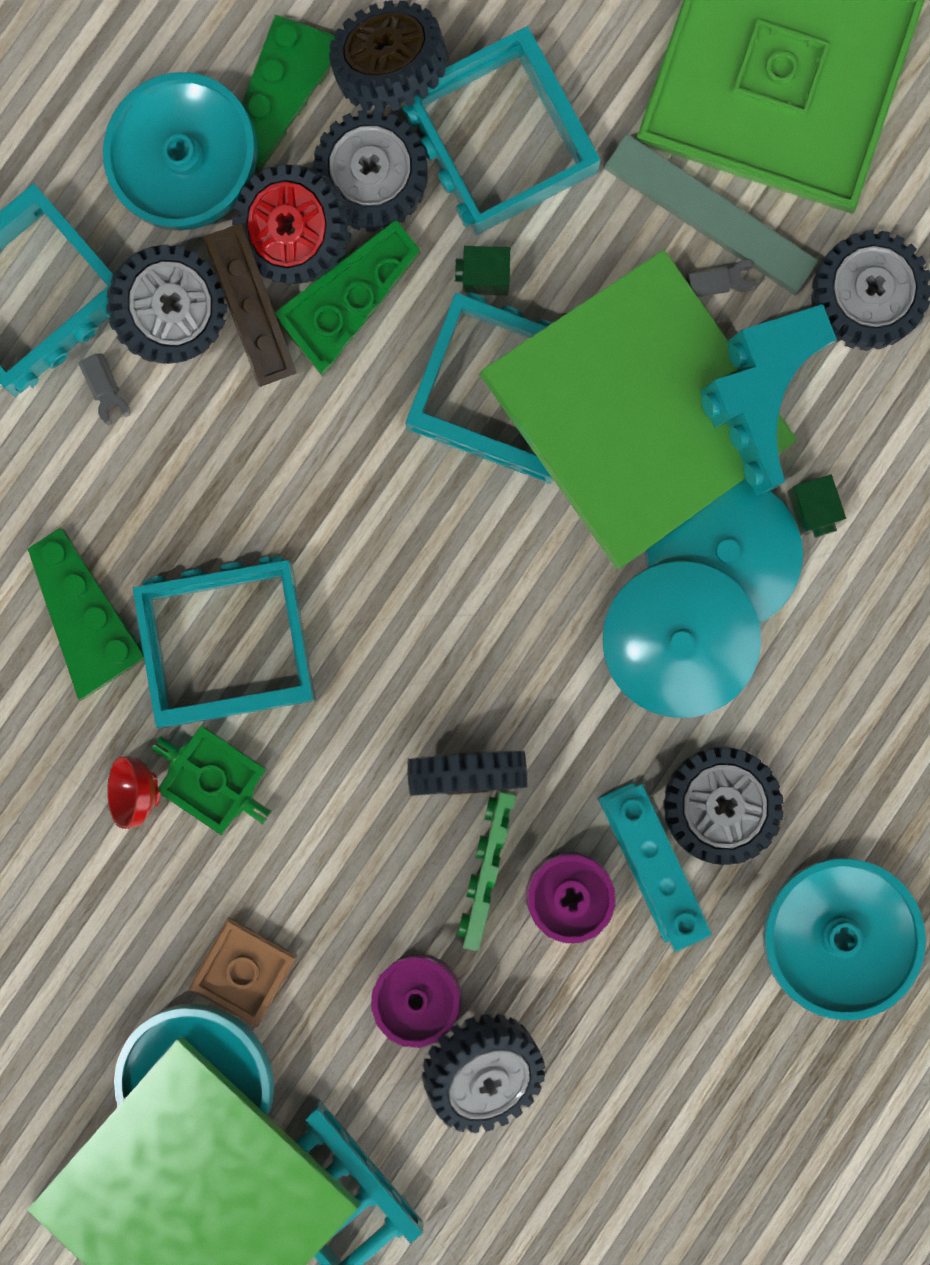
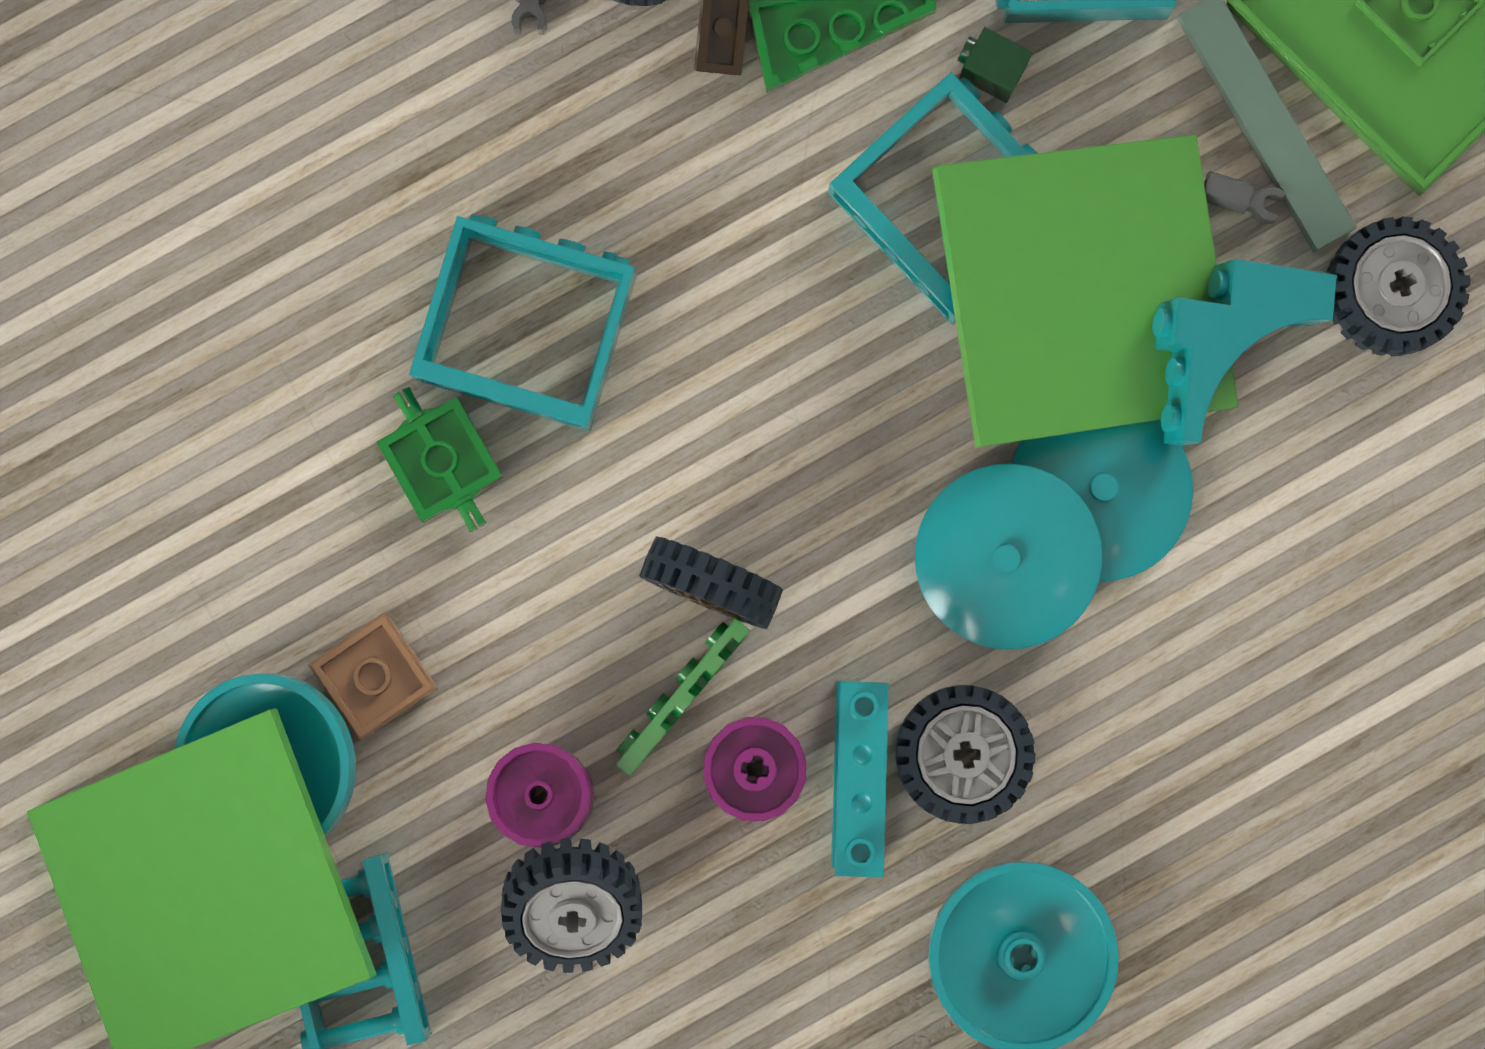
camera: 30 degrees right, 0 degrees up
(85, 621) = (390, 229): green wing -> none
(131, 792) = (350, 429): red piece -> none
(817, 506) = (1223, 487): dark green brick -> none

